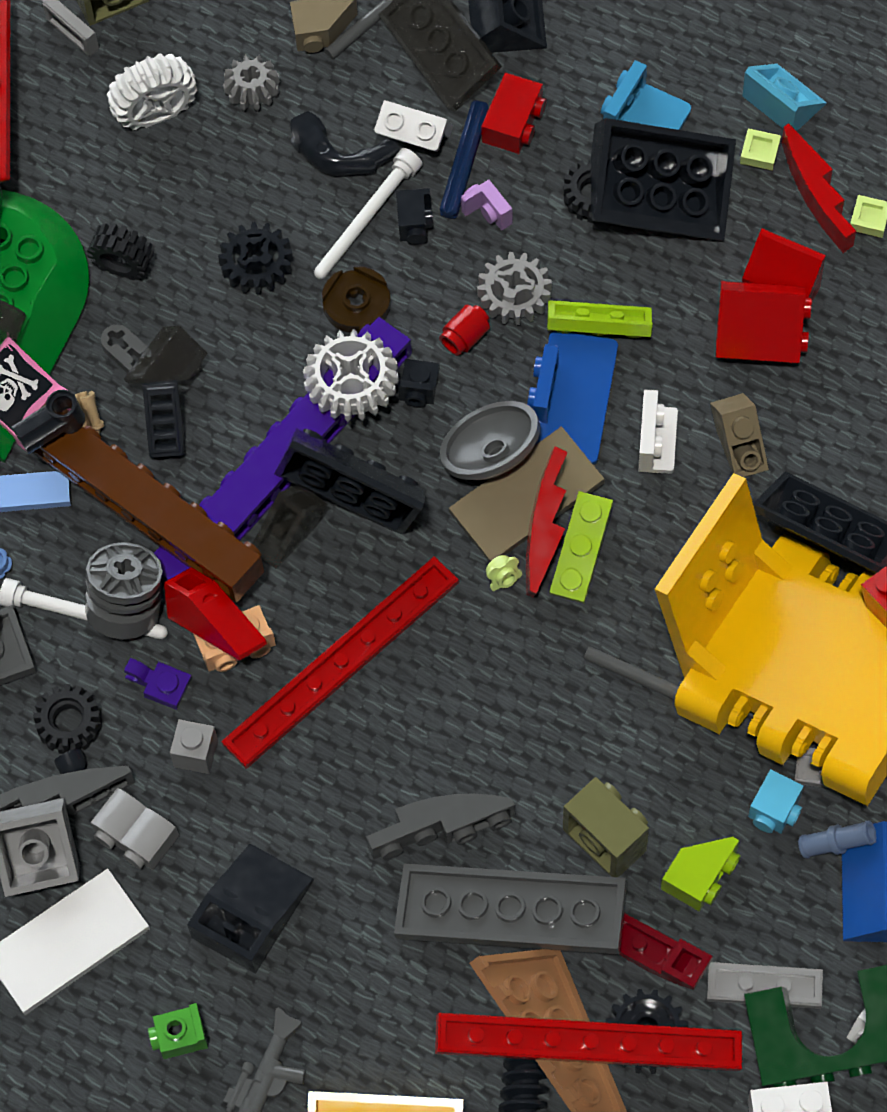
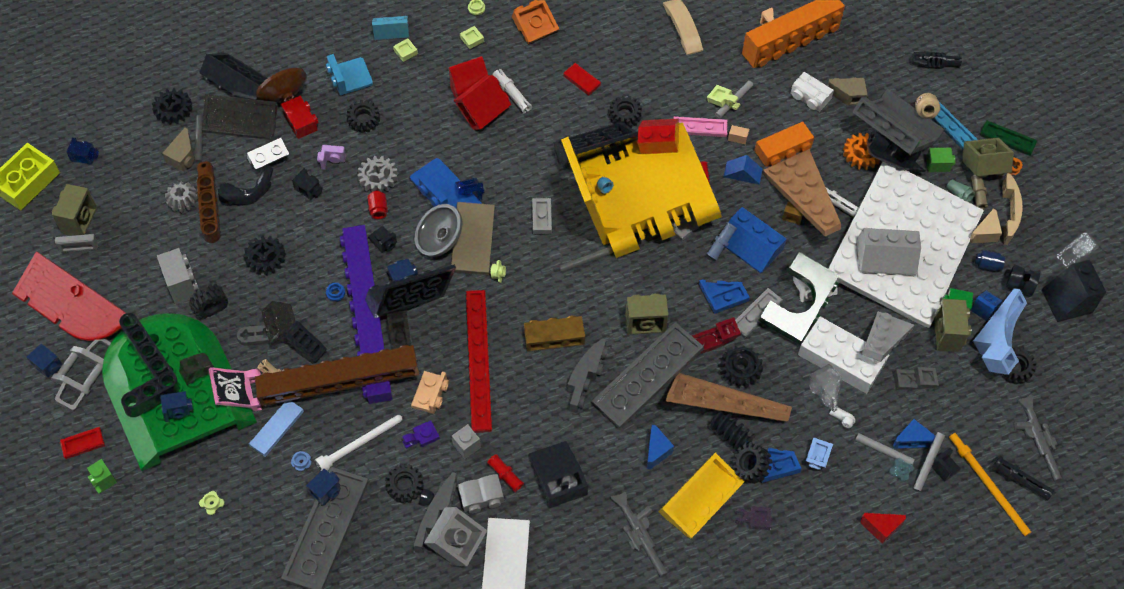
camera: 55 degrees left, 5 degrees down
(48, 423) = (268, 380): black piece -> none
(121, 182) = (178, 275): none -> light grey brick
(123, 590) = (370, 414): dark grey wheel -> none
(151, 91) = (146, 233): white gear -> none
(190, 1038) = (589, 550): bright green brick -> none
(194, 836) = (505, 472): none -> red pin
(209, 613) = (414, 387): red slope -> none
(269, 133) = (209, 208): none -> reddish brown piece
(278, 383) = (335, 287): none -> blue plate
(351, 283) = (326, 242): dark brown plate -> none
(351, 387) = (349, 255): white gear -> none
(386, 447) = (401, 270): none -> dark blue brick
(405, 164) = (280, 171): white piece -> none
(405, 1013) = (659, 447): none -> blue slope
(463, 160) = (300, 150): dark blue axle -> none
(468, 727) = (554, 333): none -> pearl gold brick
(529, 50) = (282, 85): none -> reddish brown dish
(543, 534) = (497, 242): red slope -> none
(581, 547) = (515, 235): lime plate -> none
(588, 1042) = (733, 386): red tile -> none
(599, 319) = (422, 156): lime plate -> none
(604, 421) = (468, 186): none -> clear blue bracket
(649, 557) = (542, 216): none -> light grey plate
(657, 435) = (491, 174): white bracket -> none
(661, 178) = (385, 87): black slope -> none
(697, 870) = (691, 299): lime slope -> none
(740, 434) = (520, 146): dark tan slope -> none
(750, 914) = (724, 294): none -> blue wing
(763, 598) = (605, 185): none -> dark azure hinge
(776, 803) = (686, 250): medium azure brick -> none
(813, 181) = (436, 43): red slope -> none
(831, 332) = (508, 86): none -> white pin

